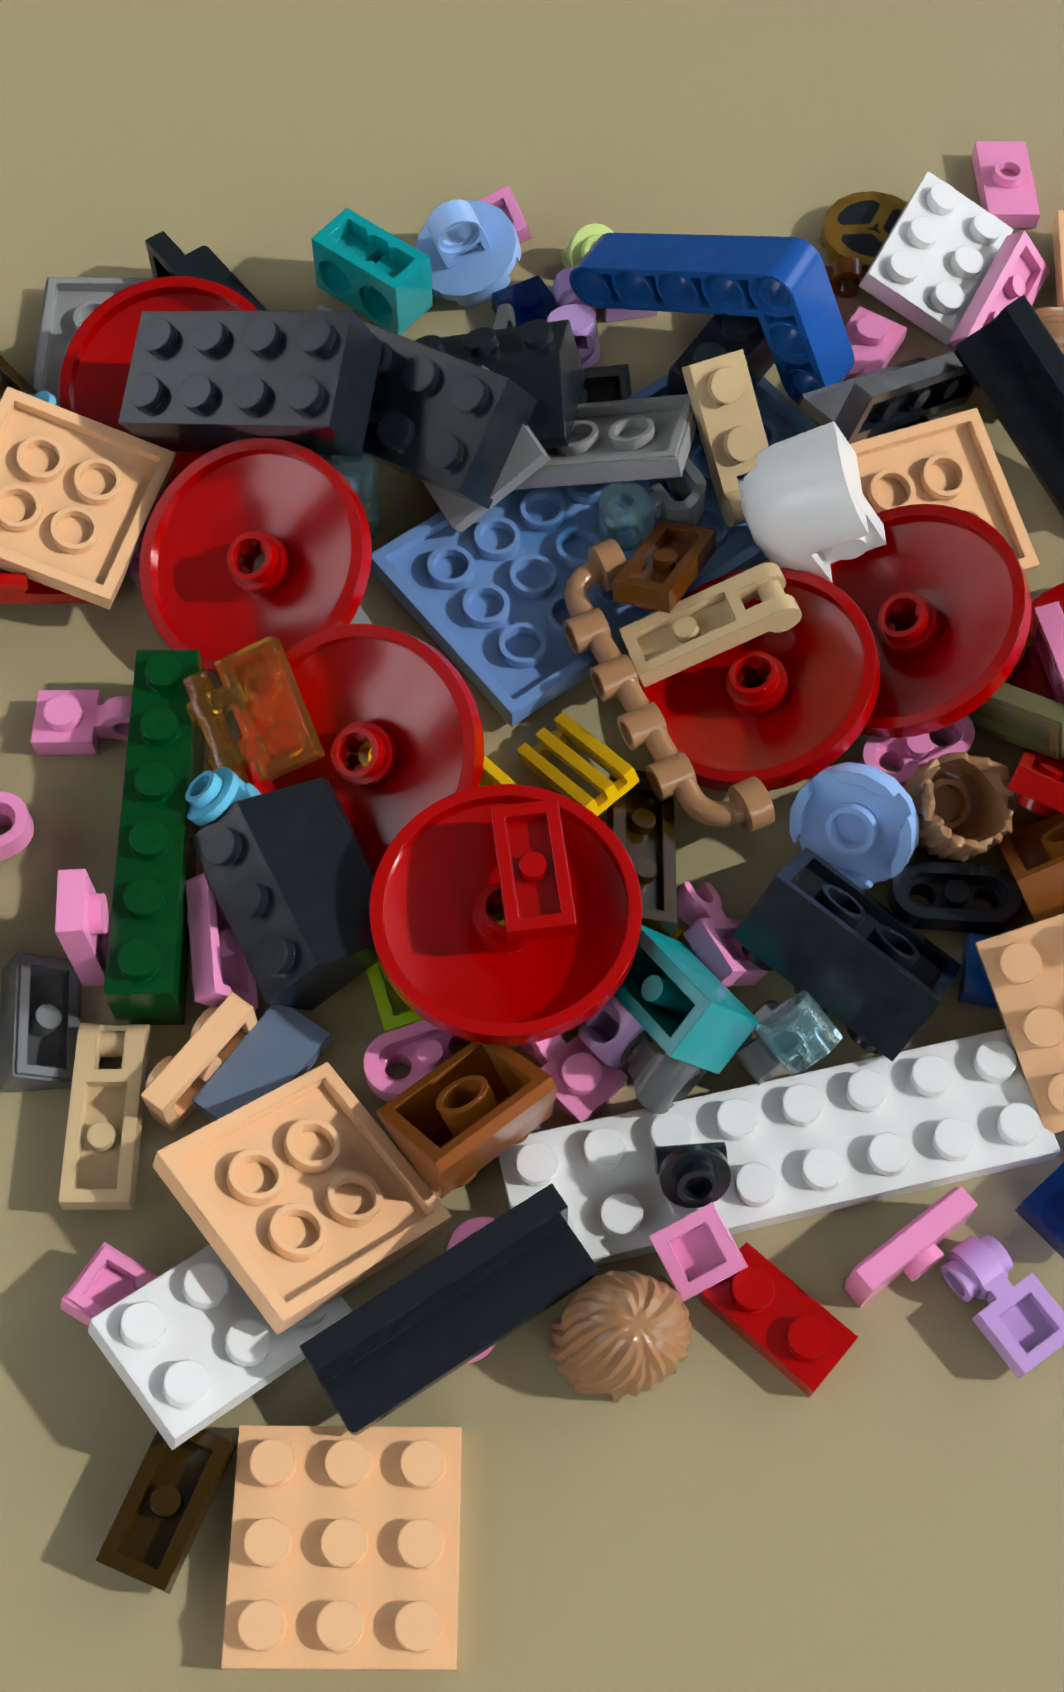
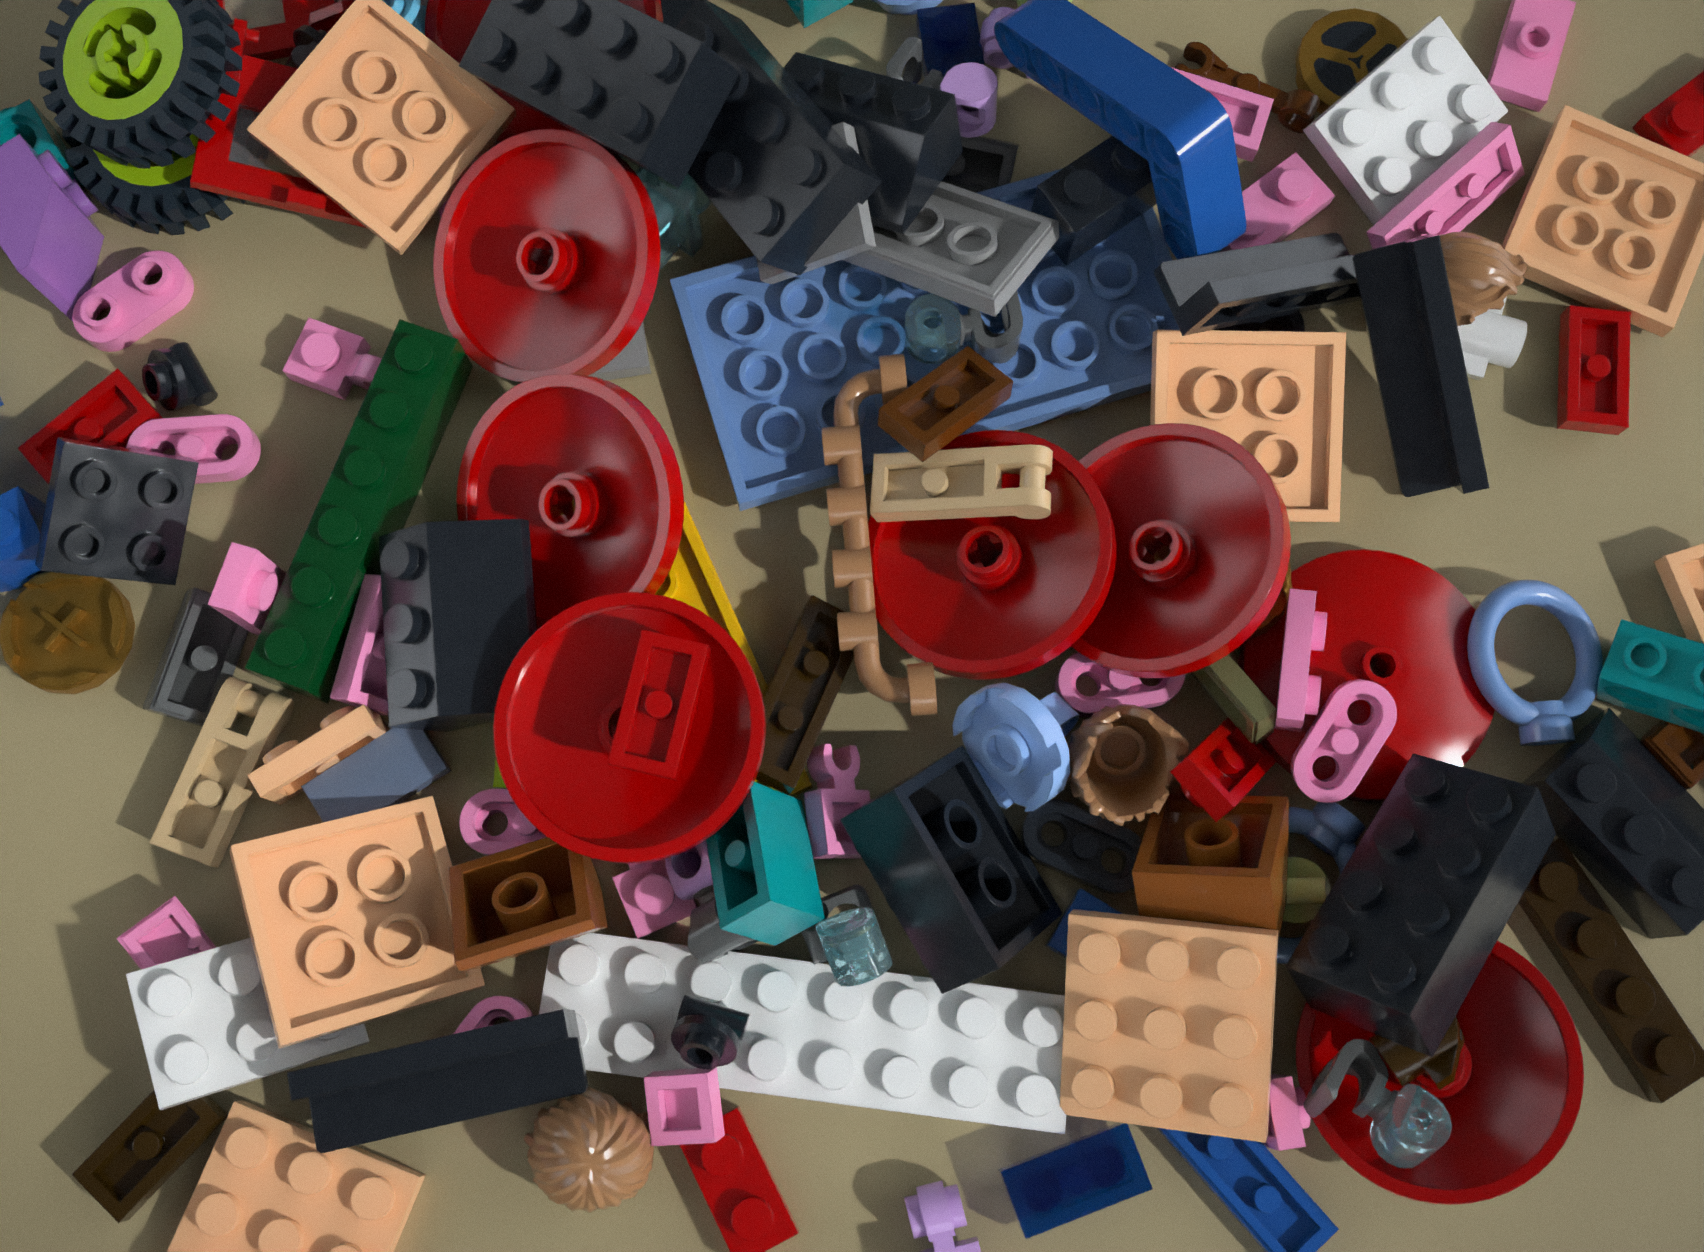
camera: 20 degrees right, 15 degrees up
(214, 793) = (416, 502): medium azure plate -> none
(267, 709) = (490, 435): clear orange plate -> none
(554, 743) = (765, 545): yellow tile -> none
(727, 425) = (1073, 281): tan plate -> none
(809, 503) = (1105, 398): white brick -> none
(912, 1248) = (881, 1174): bright pink plate -> none

